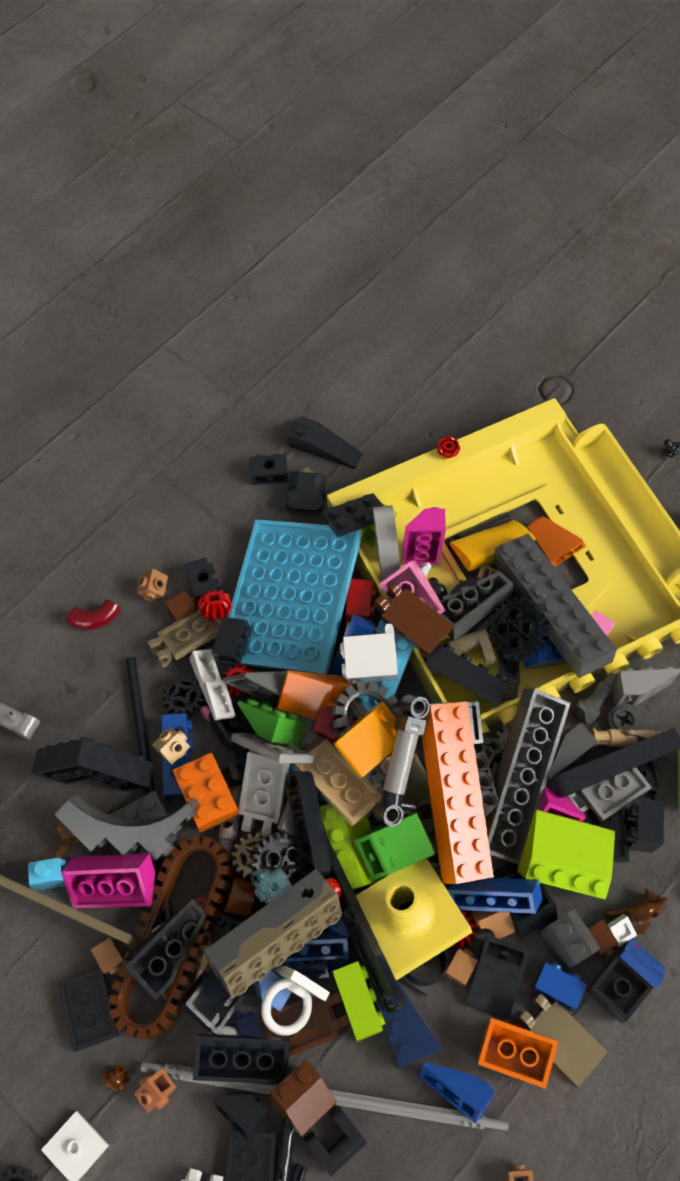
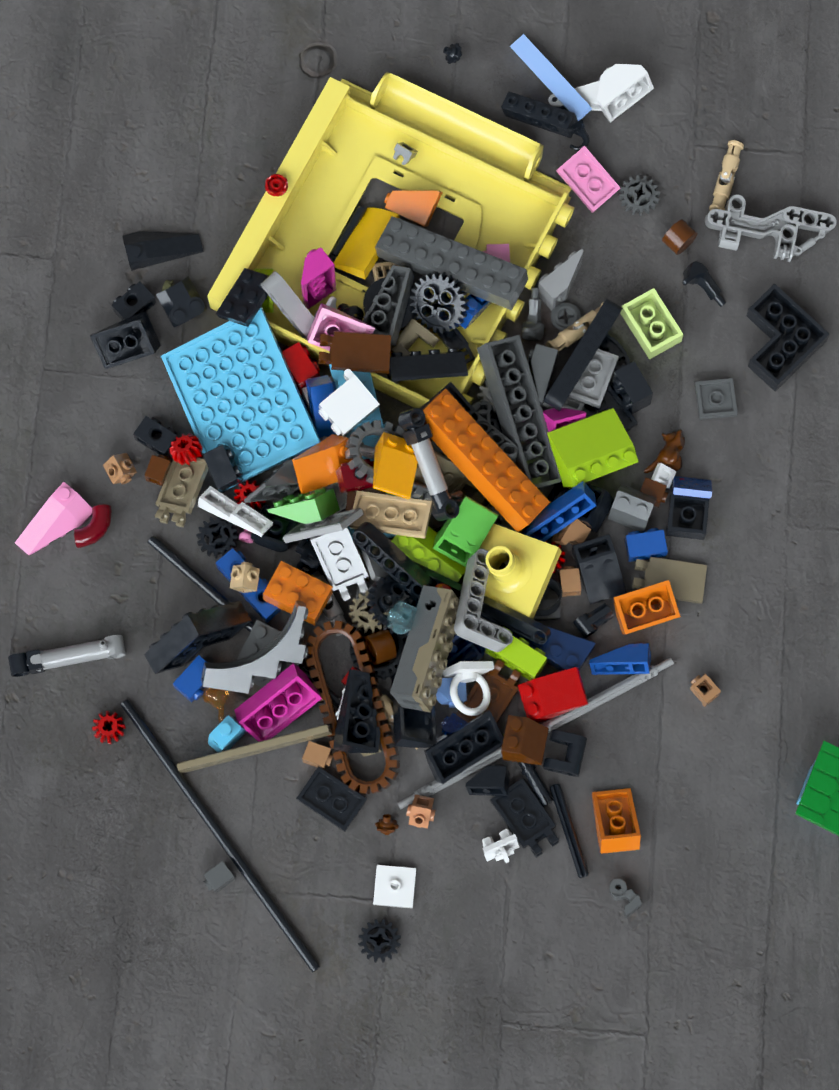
camera: 35 degrees left, 10 degrees up
(54, 800) = (190, 680): none -> blue brick
(77, 587) = (58, 516): none -> bright pink wedge
(239, 491) = (126, 341): none -> black slope
(350, 922) = (468, 621): none -> light grey beam
(364, 1071) = (553, 695): none -> red slope
(453, 1023) = (589, 623): none -> black piece
(577, 495) = (404, 150): none -> tile

